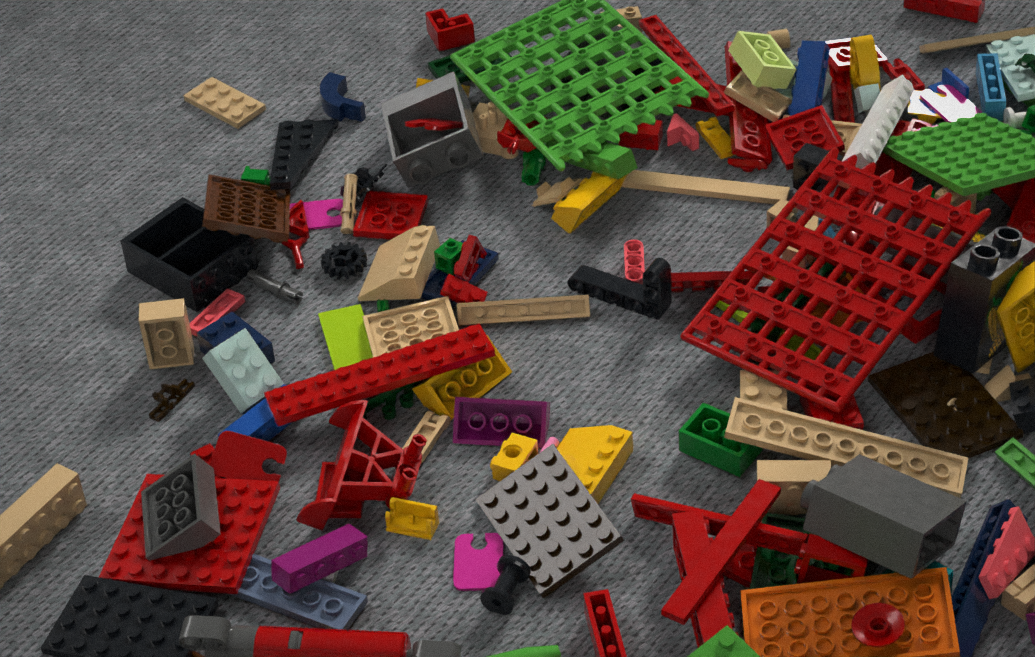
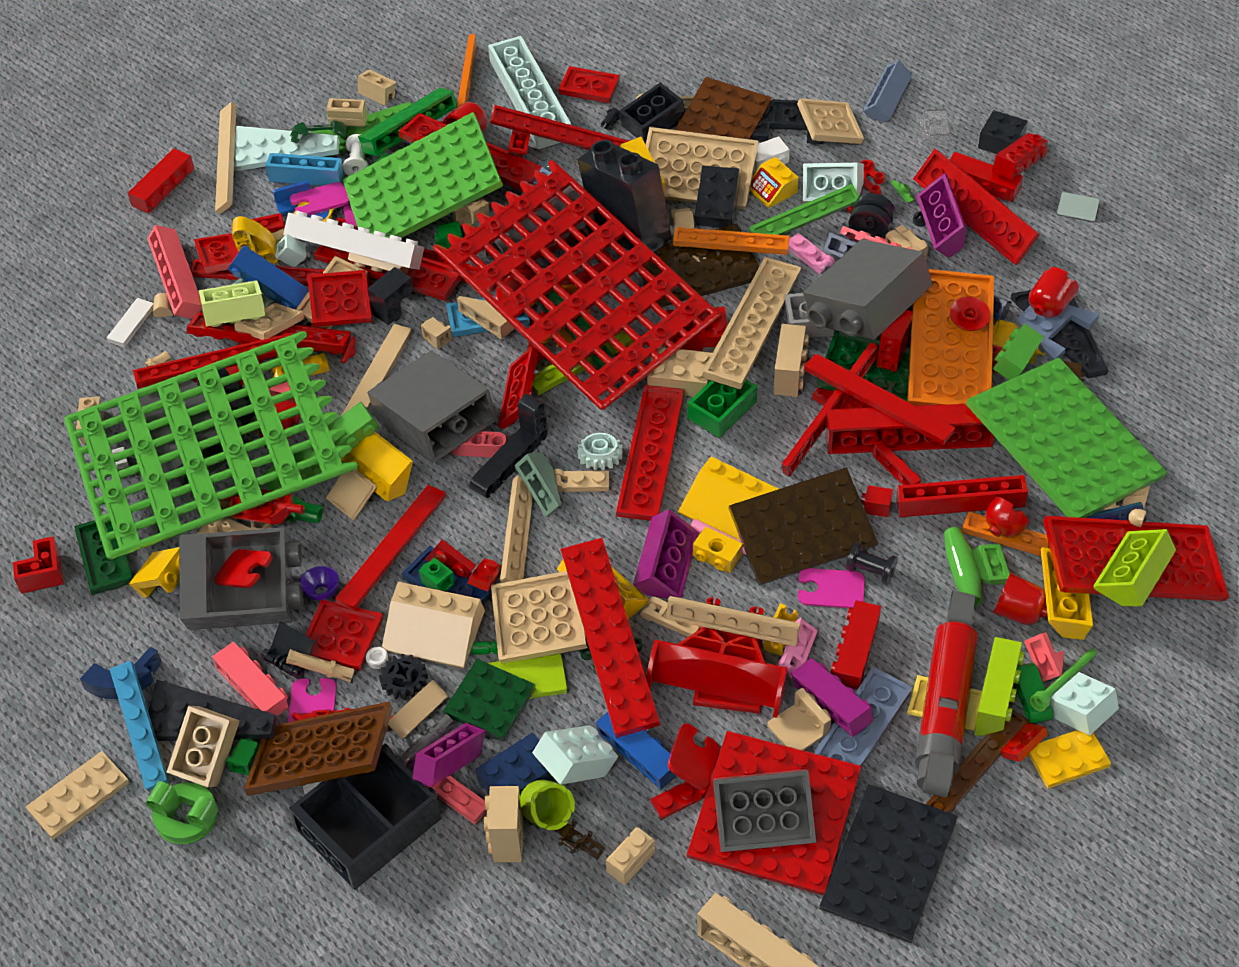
camera: 85 degrees left, 10 degrees up
(143, 432) = (630, 856): none -> tan brick
(186, 360) = (547, 804): none -> lime cylinder
(191, 157) = (164, 803): none -> bright green piece
(240, 286) = (448, 754): none -> magenta brick
(256, 146) = (203, 746): none -> tan brick
(283, 114) = (139, 725): none -> dark azure plate
(290, 538) = (801, 723): none -> tan bracket
(306, 273) = (417, 709): none -> tan beam
(318, 318) = (489, 699): none -> dark green plate
(330, 171) = (249, 680): none -> coral brick
(369, 243) = (376, 657): none -> white tile
(391, 533) = (799, 653): none -> bright pink plate
(394, 578) = (856, 644): none -> red brick
(397, 461) = (733, 621): none -> tan tile
(444, 186) = (319, 577): none -> dark purple piece
(496, 229) = (390, 548): none -> red tile
(593, 312) = (540, 481): none -> sand green slope
(600, 350) = (581, 480): none -> tan plate
(600, 579) = (877, 500): none -> red brick
(636, 354) = (600, 451): none -> light aqua gear
(642, 395) = (650, 453): none -> red plate
(650, 602) = (894, 465): none -> red plate
(662, 216) = (432, 406): none -> dark grey brick
(700, 47) = (162, 358): none -> tan pin
(751, 24) = (130, 322): none -> white tile
(828, 28) = (174, 272): none -> coral brick
(979, 421) = (731, 240): none -> orange plate
(1002, 491) = (810, 253): none -> bright pink plate

